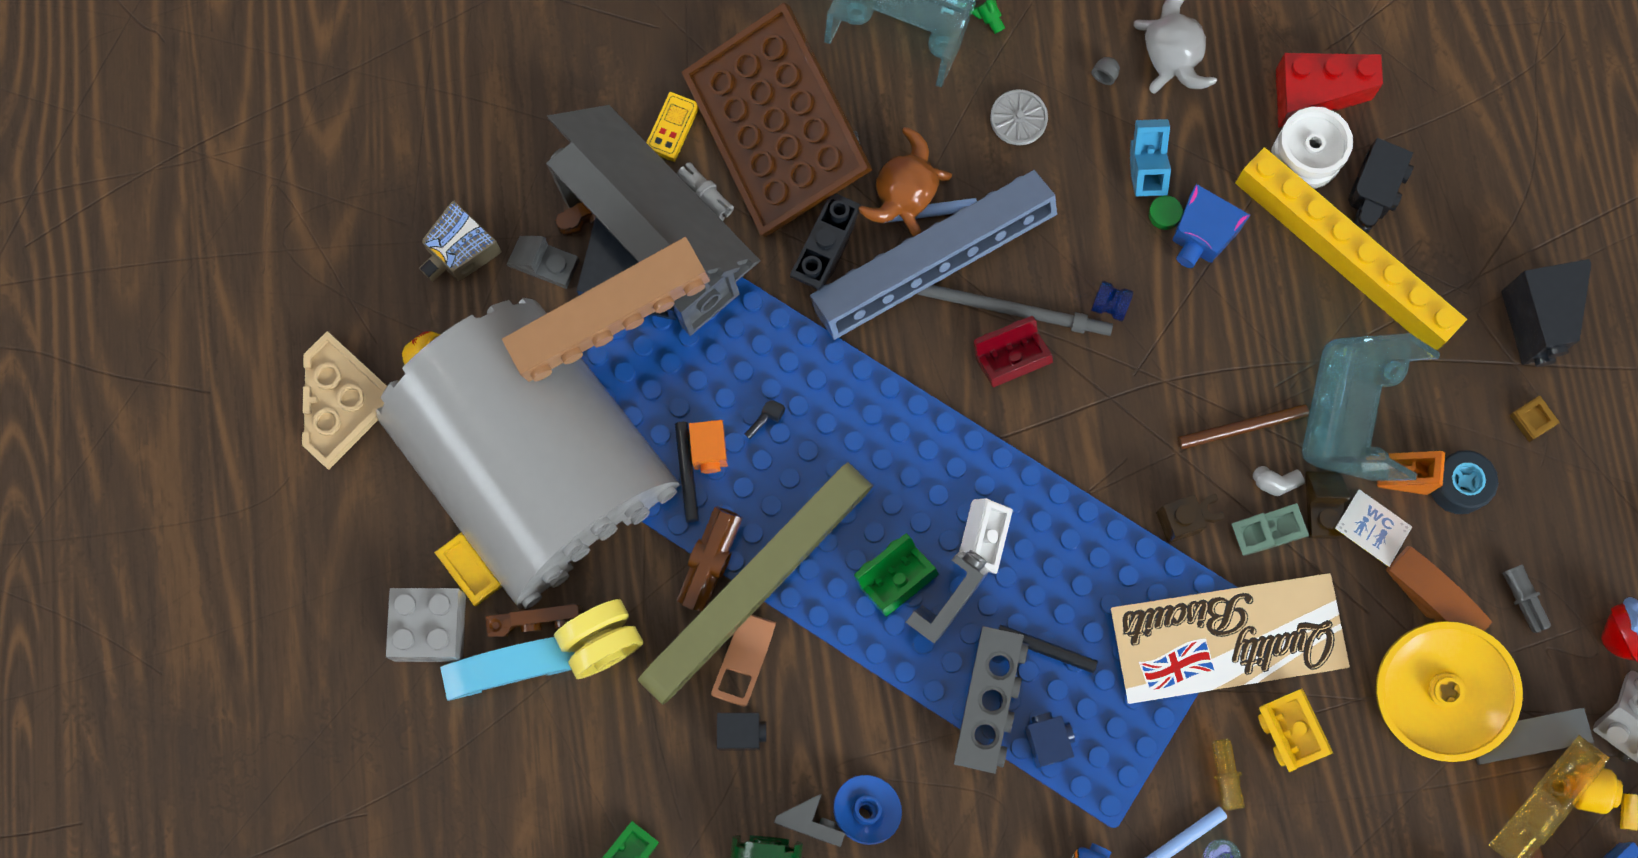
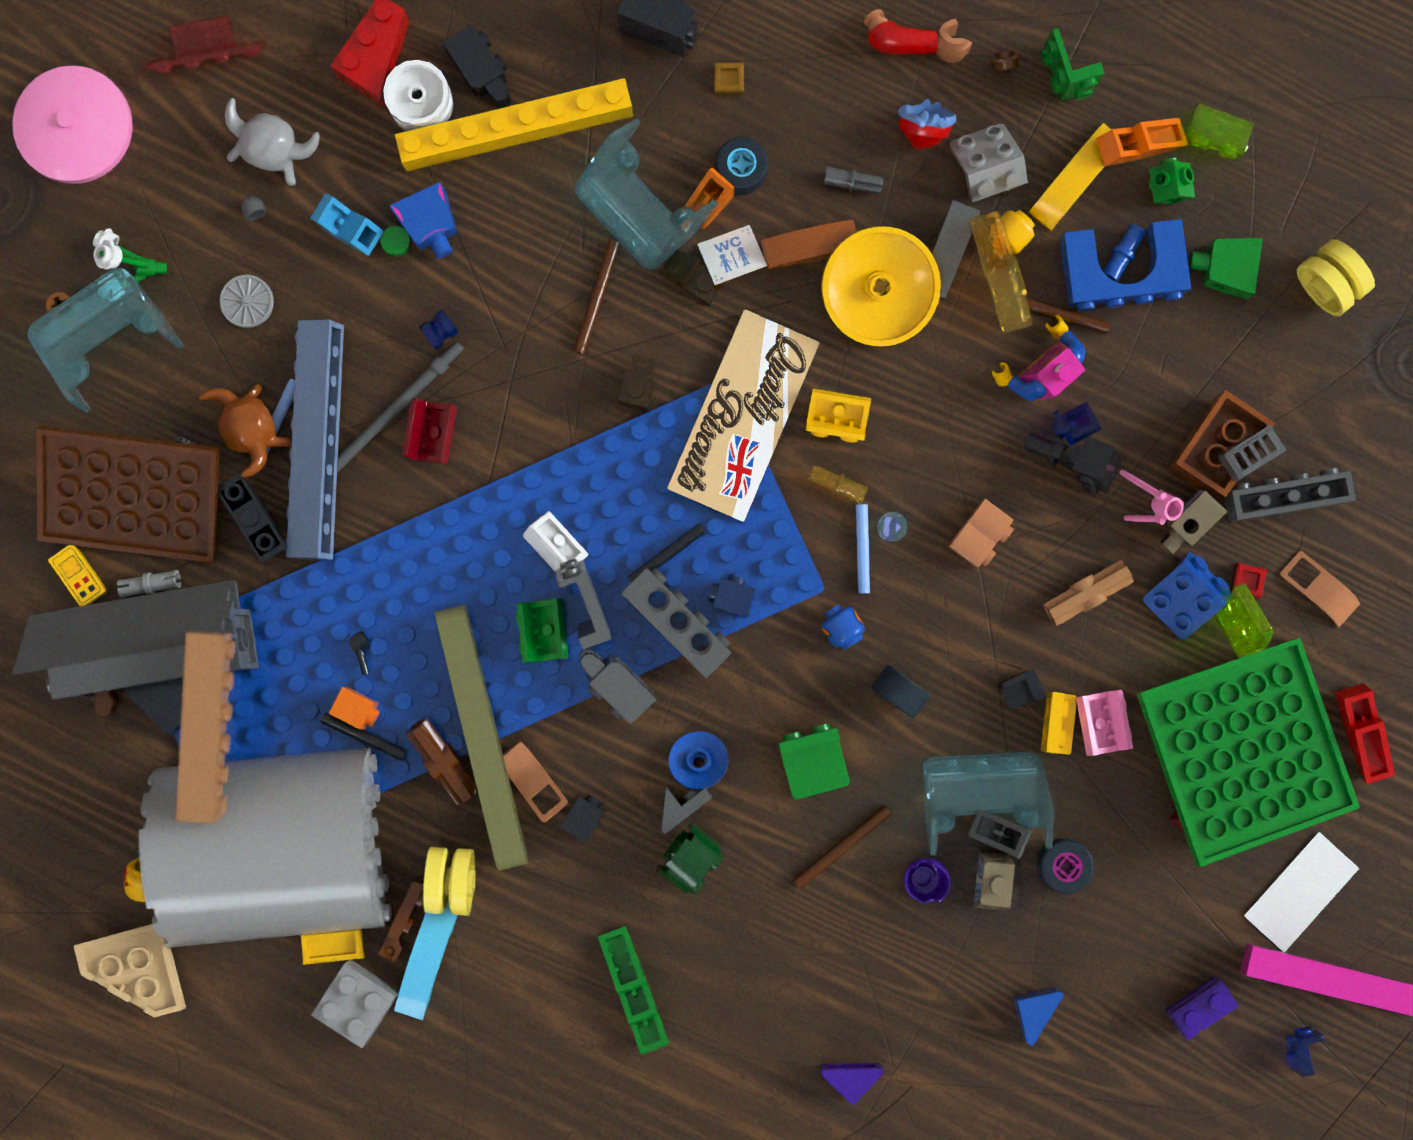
camera: 55 degrees left, 10 degrees up
(457, 245) = (68, 803): torso -> none
(543, 261) = (123, 744): dark grey slope -> none
(890, 680) = (616, 684): none -> dark grey hinge
(1270, 529) = (685, 330): sand green slope -> none
(1275, 483) = (655, 302): light grey arm -> none

